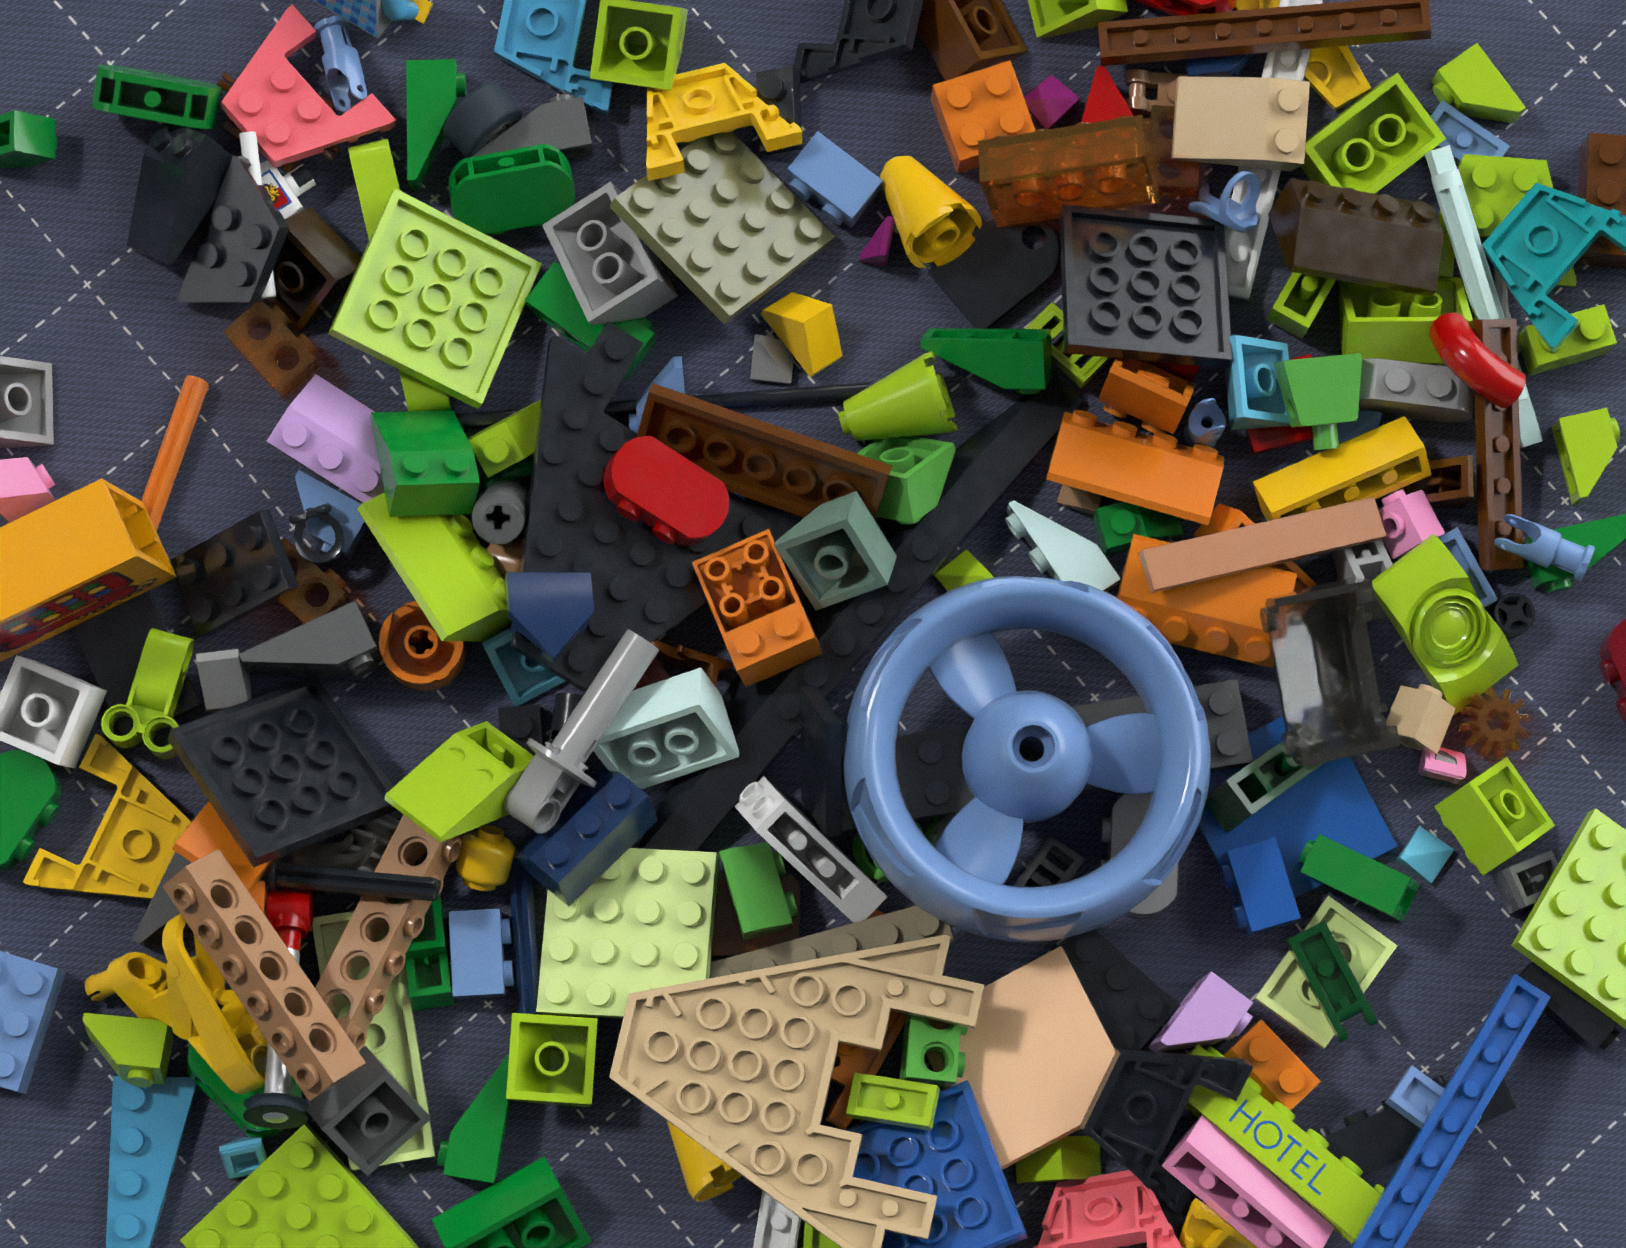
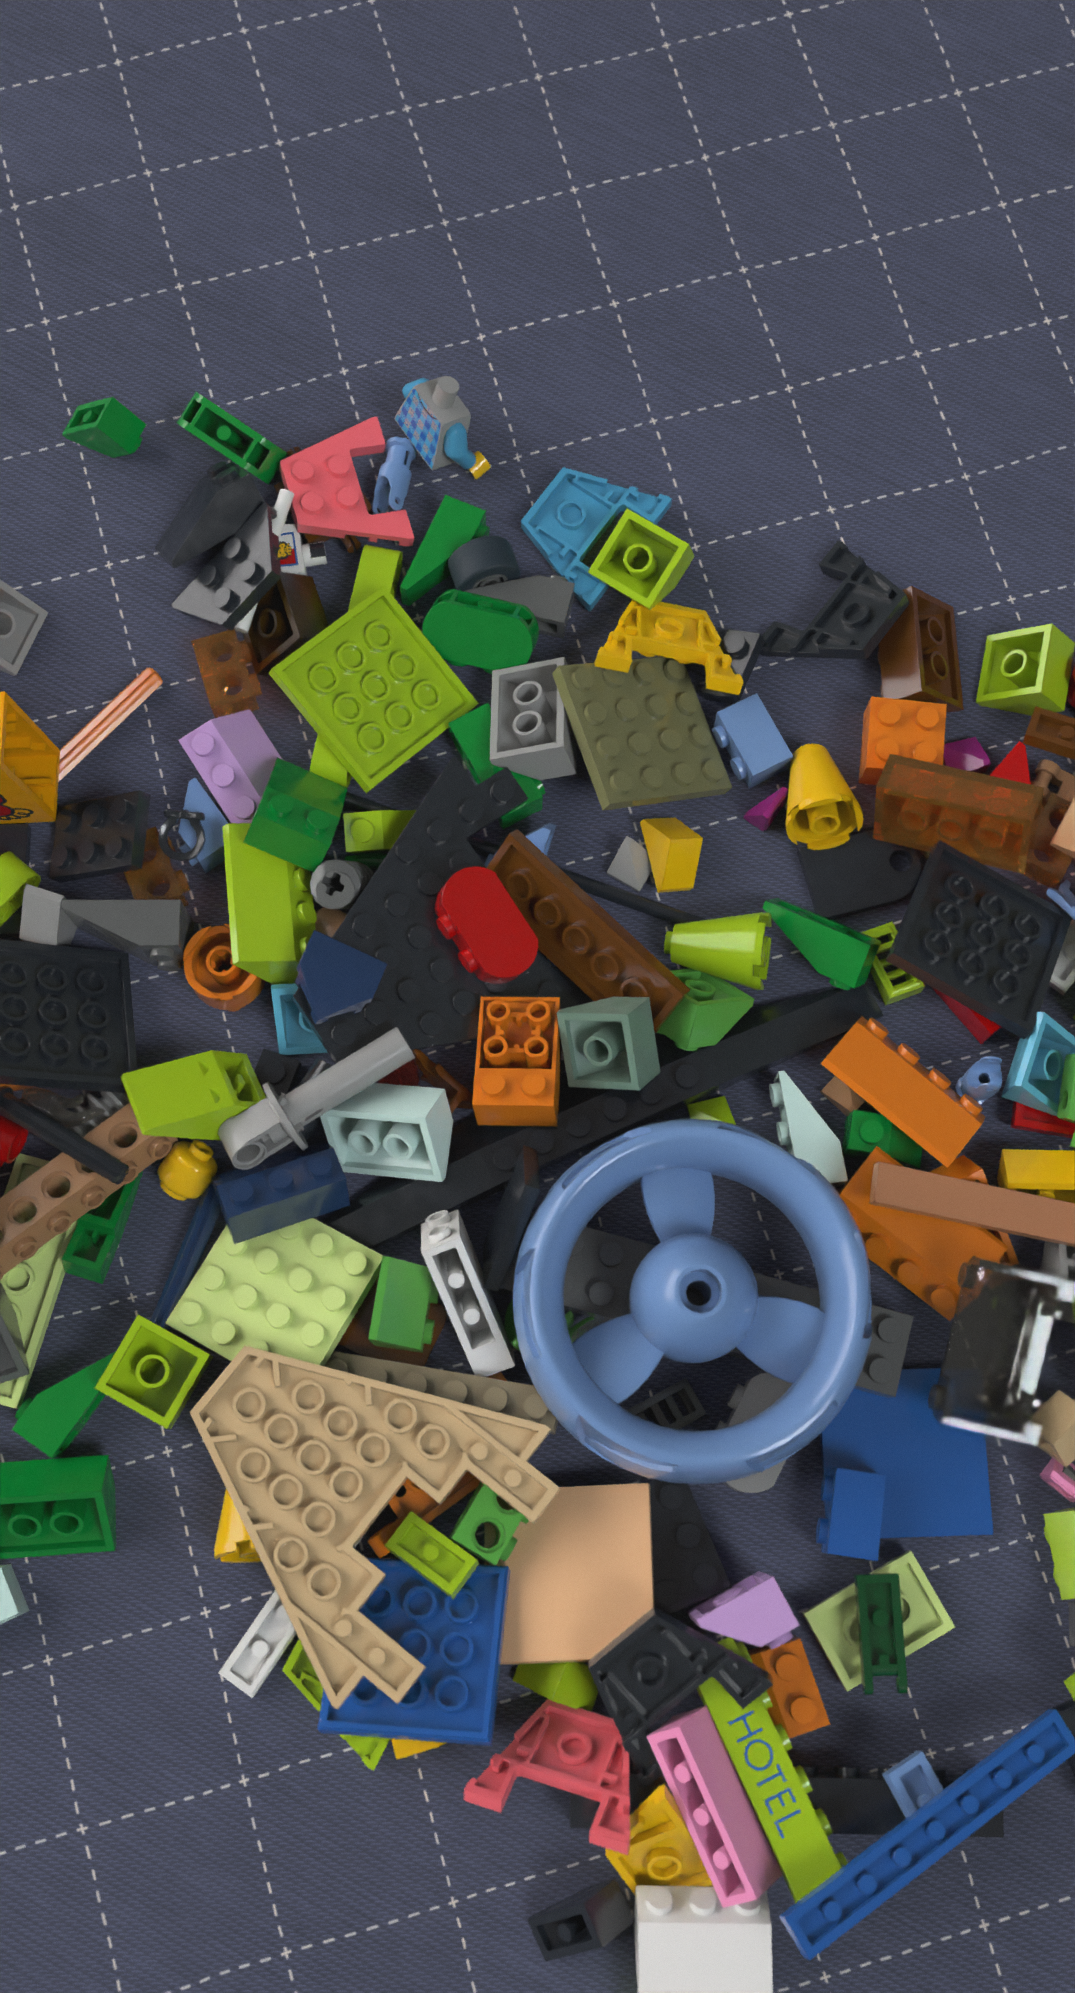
camera: 30 degrees right, 5 degrees down
(478, 953) = (143, 1249): medium blue brick -> none
(1147, 394) = (939, 1031): orange slope -> none
(1255, 787) = (887, 1421): dark green slope -> none
(1359, 876) = (946, 1547): green slope -> none
(1425, 854) = (1015, 1553): medium azure slope -> none

